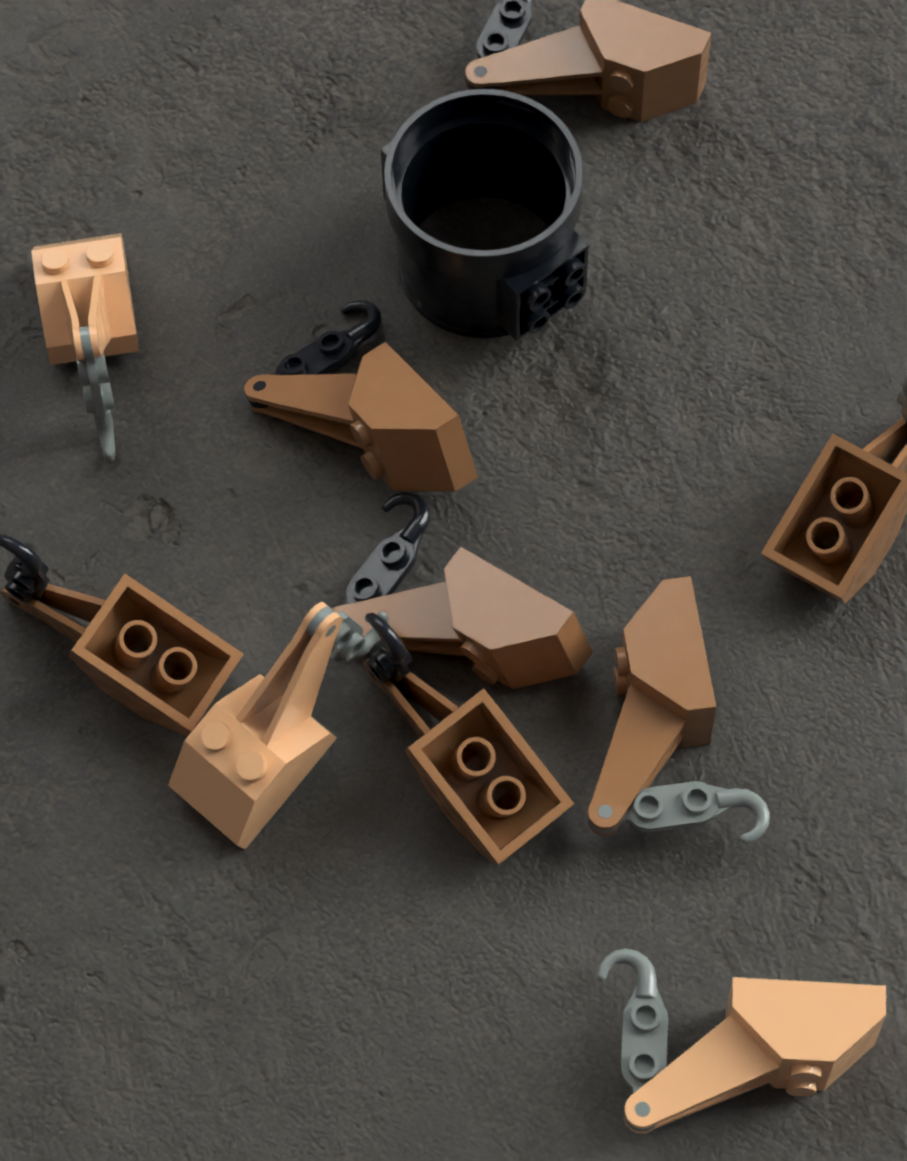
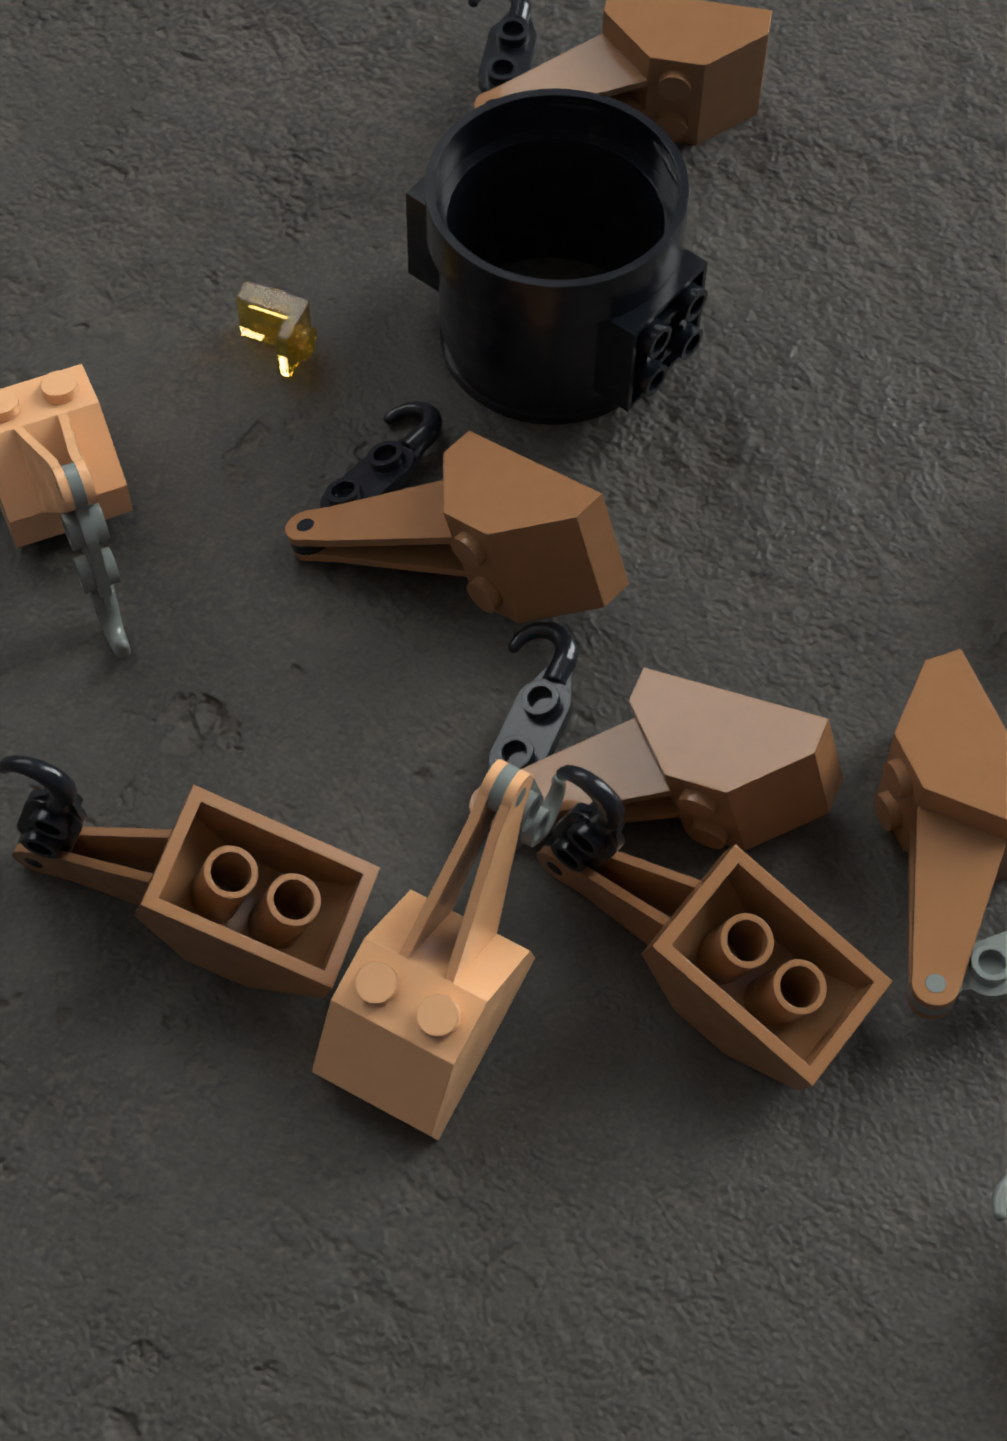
camera: 15 degrees left, 5 degrees down
(282, 218) = (279, 321): none -> clear yellow bracket

